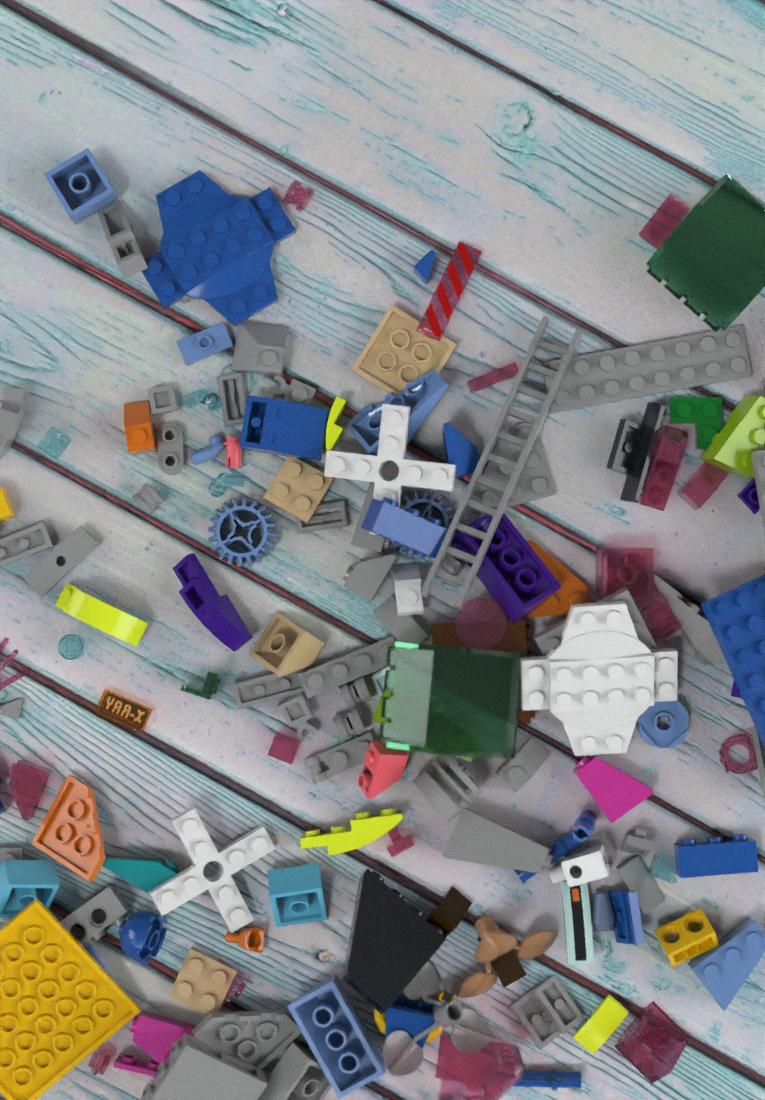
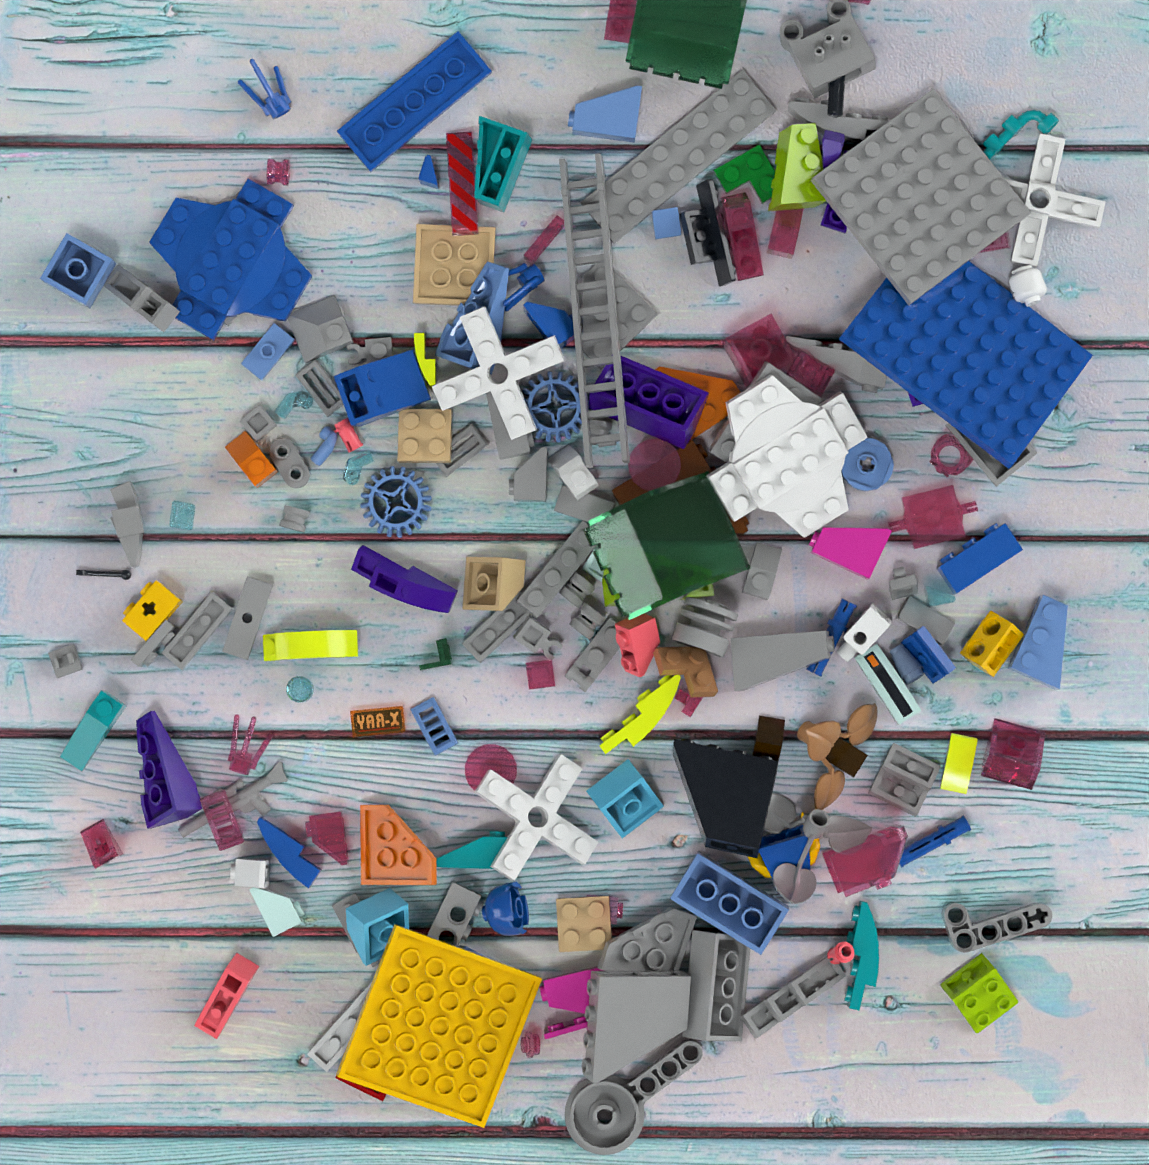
camera: 25 degrees left, 0 degrees up
(169, 764) = (442, 721): none -> medium blue slope
(200, 796) = (486, 758): none -> clear pink tile
(248, 938) = (602, 862): orange piece -> none
(328, 137) = (276, 104): none -> blue plant
(404, 527) = (539, 415): brick -> none
(418, 814) = (691, 663): none -> medium nougat plate
(447, 199) = (414, 101): none -> blue plate
(461, 404) = (529, 279): none -> blue plant
(491, 290) = (498, 162): none -> teal wedge
(584, 825) = (846, 594): blue pin -> none
(605, 302) = (608, 116): none -> medium blue slope
(605, 420) = (666, 223): none -> medium blue slope
(695, 798) = (933, 516): none -> clear pink plate

